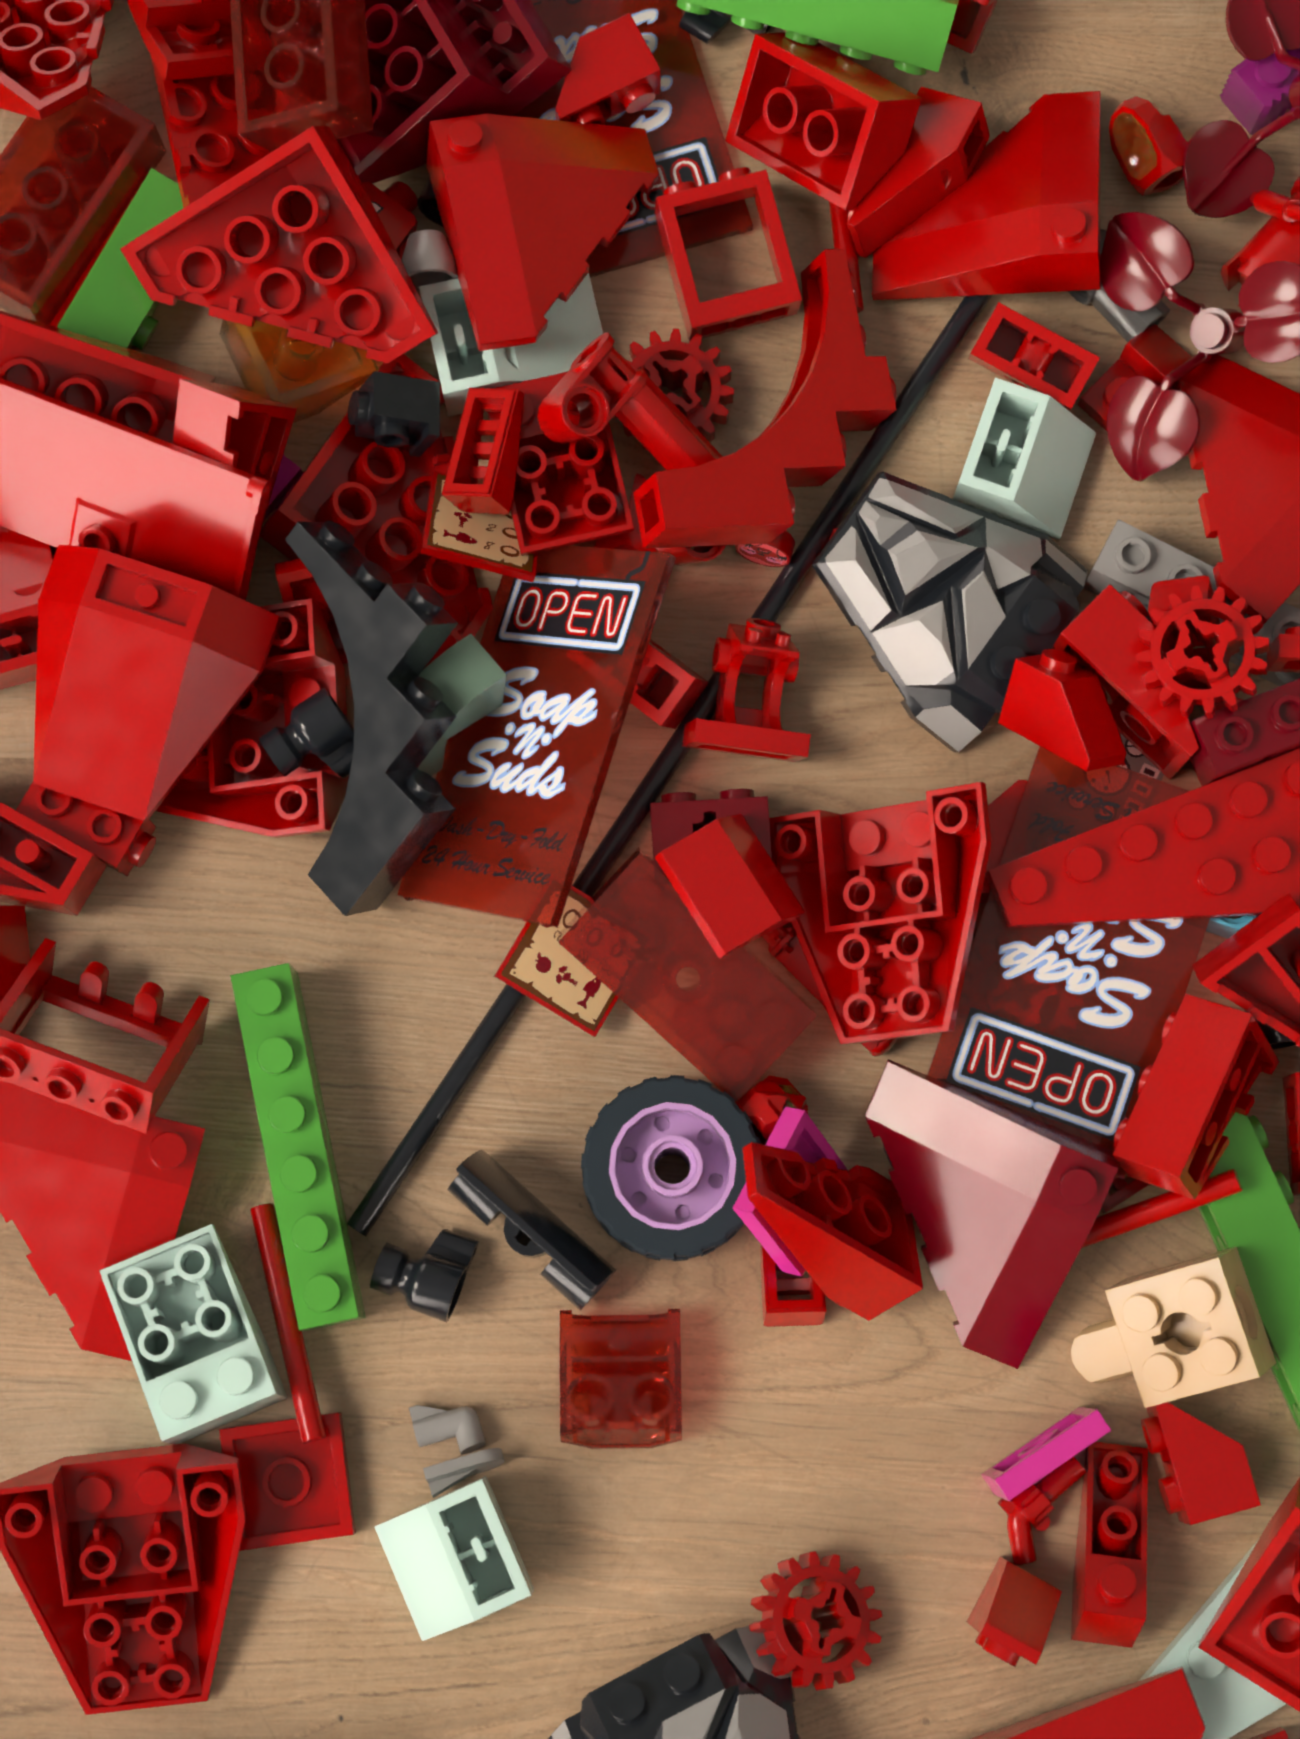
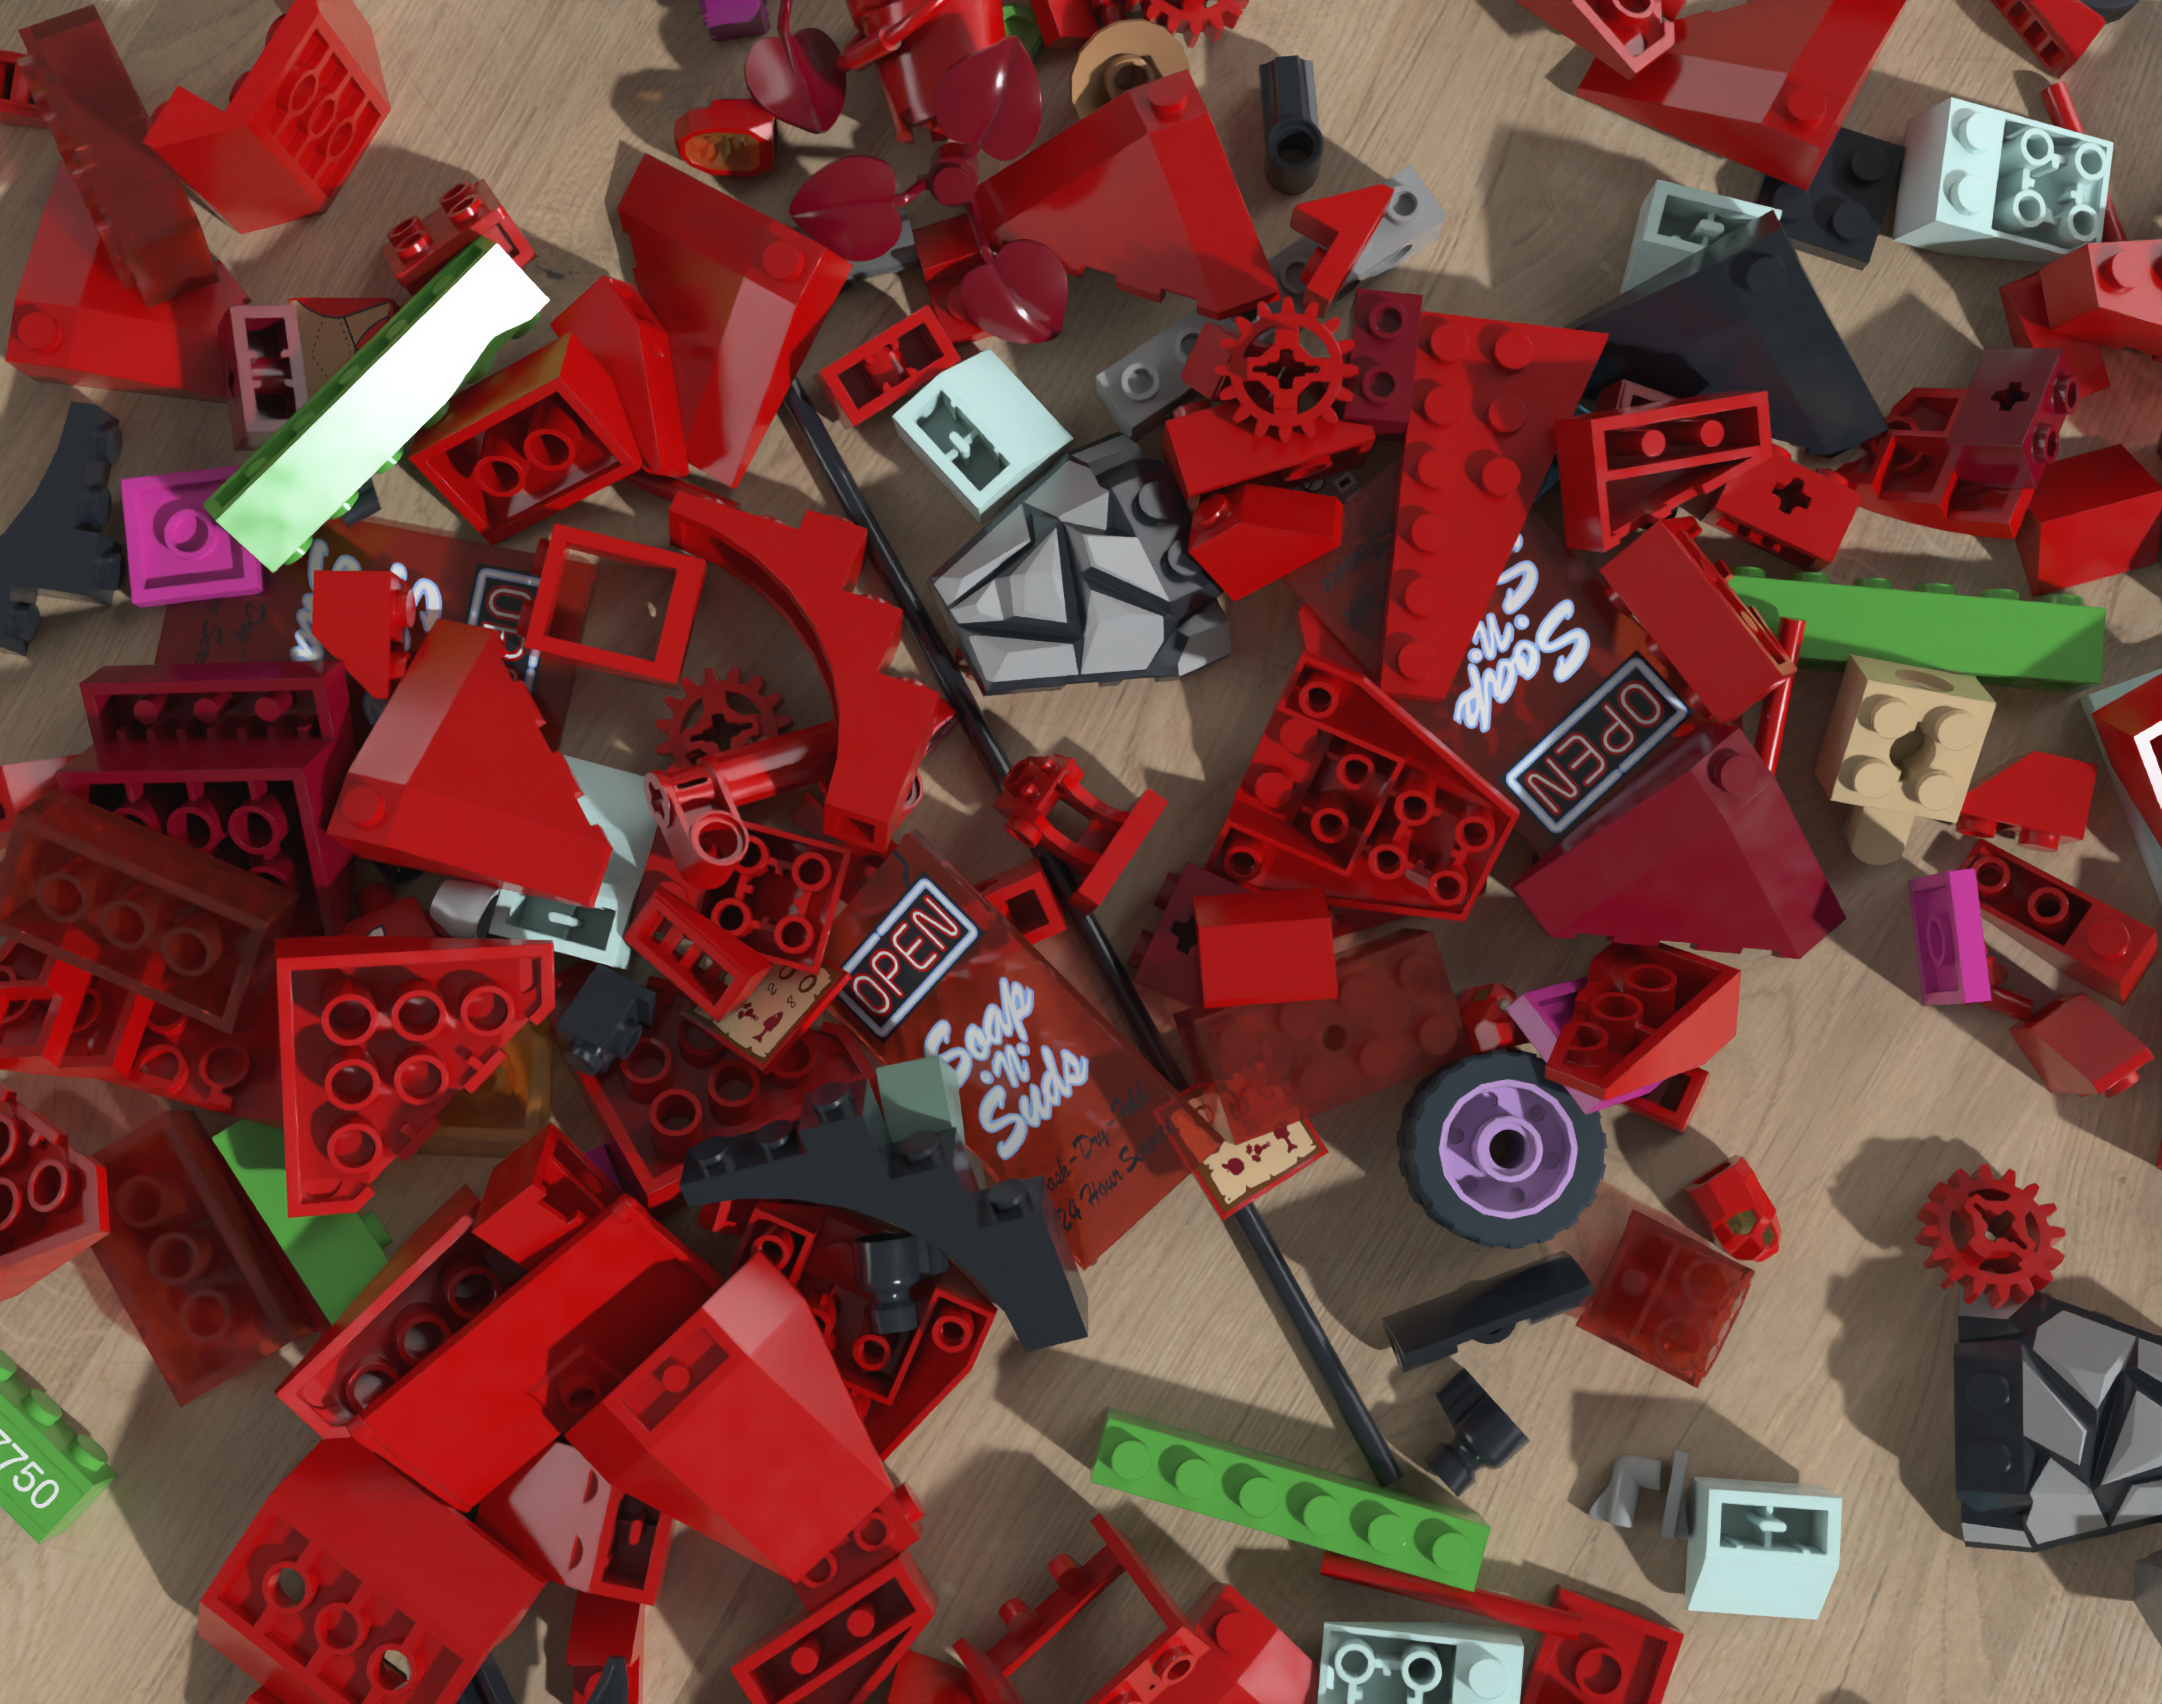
camera: 60 degrees left, 5 degrees up
(723, 1399) = (1735, 1210): none -> red rock

